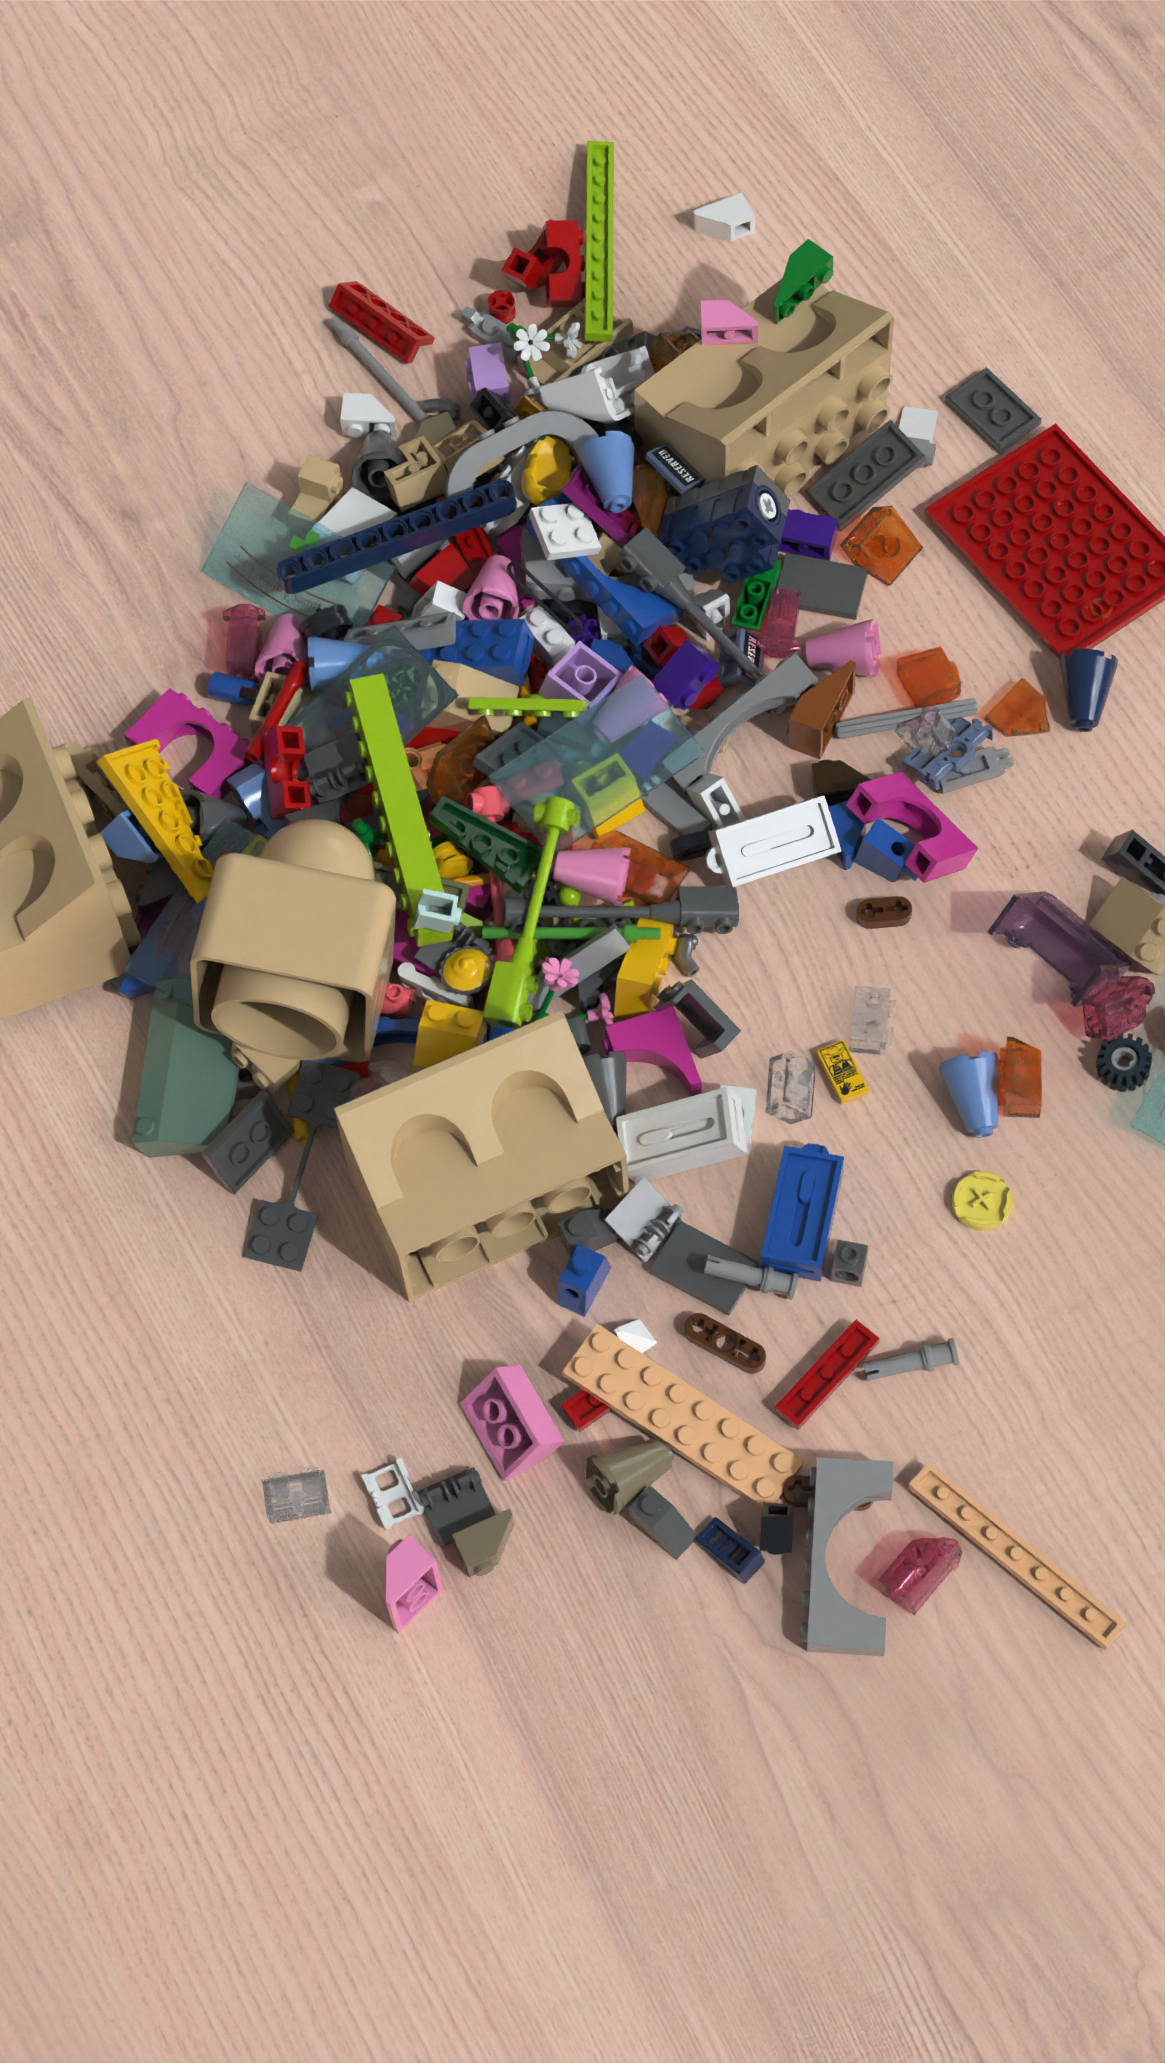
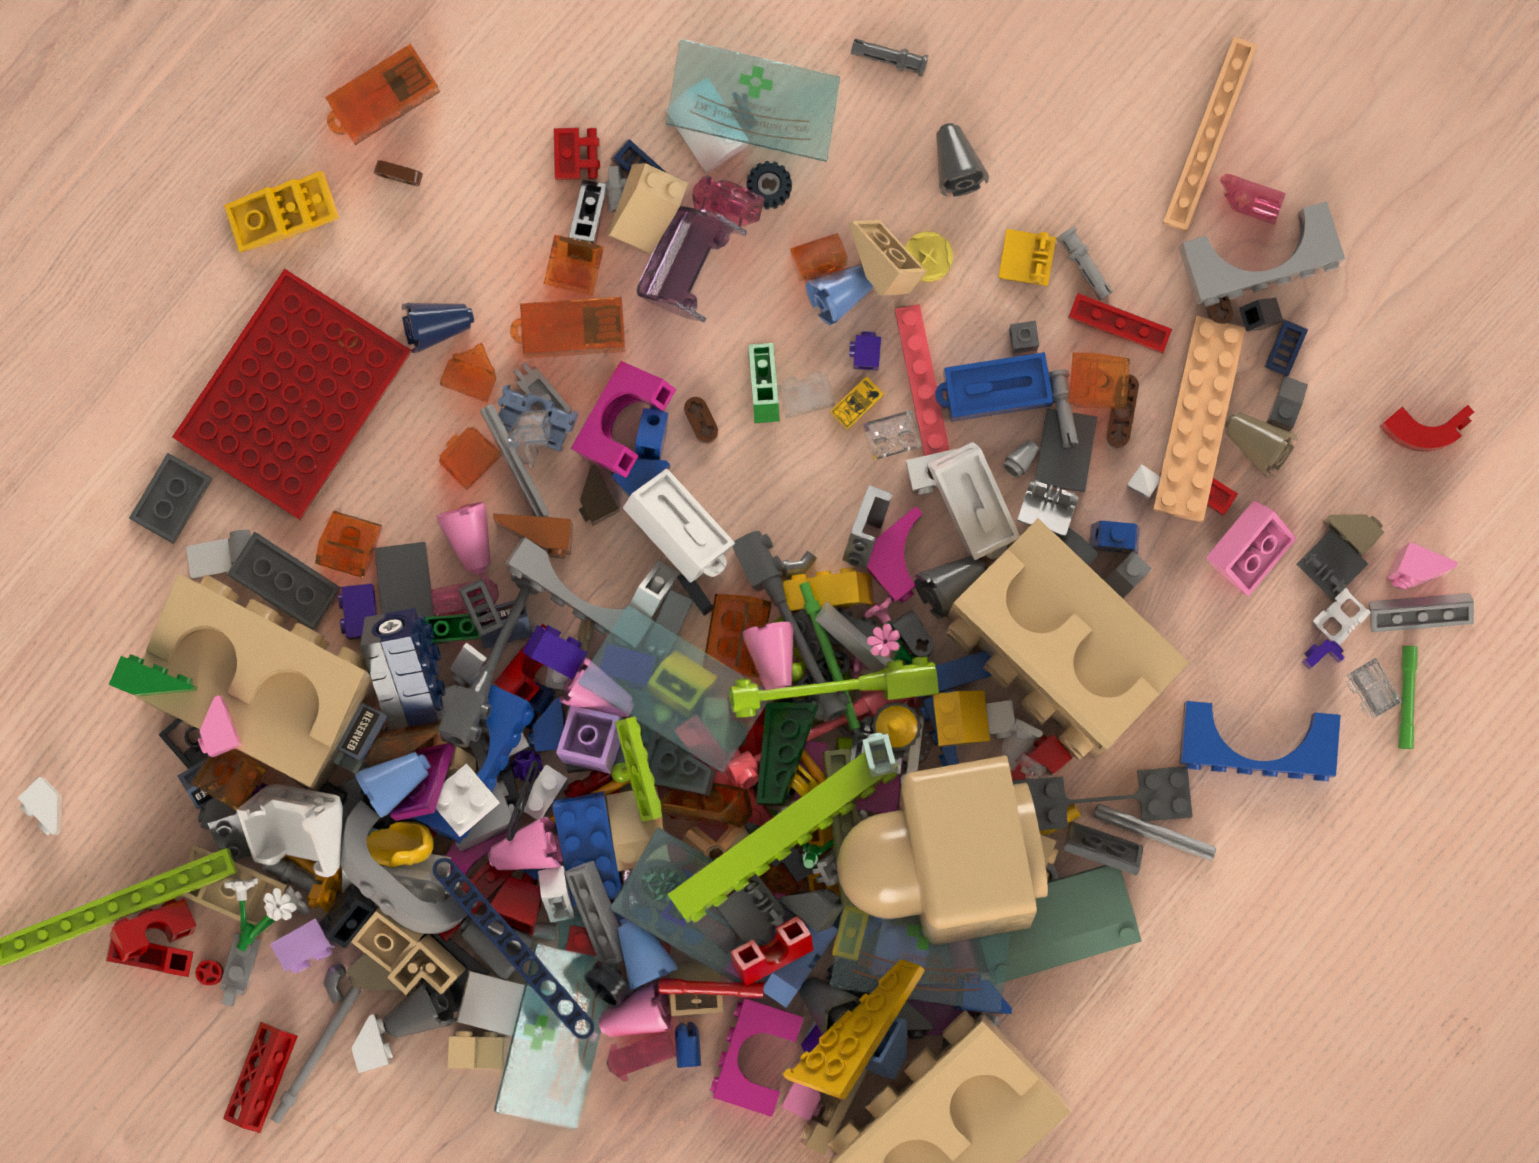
camera: 115 degrees left, 20 degrees up
(243, 1210) = (1154, 832): none -> light grey axle
(302, 1545) = (1409, 668): none -> bright green piece
(311, 1292) = (1204, 747): none -> blue arch
(360, 1587) = (1421, 612): none -> light grey slope
(364, 1462) = (1316, 653): none -> dark purple bracket
(534, 1276) = (1128, 574): none -> light grey slope
(568, 1650) = (1422, 438): none -> red arch
(712, 1215) = (1020, 460): none -> light grey cone
(767, 1321) = (1099, 381): none -> clear orange slope
(770, 636) = (464, 590): none -> dark grey slope
(855, 1147) = (921, 379): none -> coral plate
(895, 1097) = (866, 351): none -> dark purple brick
(906, 982) = (764, 383): none -> green slope
(941, 1303) = (1027, 257): none -> yellow hinge
(995, 1142) = (884, 259): none -> tan slope
(1033, 816) = (570, 327): none -> clear orange piece
(1080, 1261) = (958, 164): none -> dark grey cone
(1097, 831) = (574, 265): none -> clear orange slope

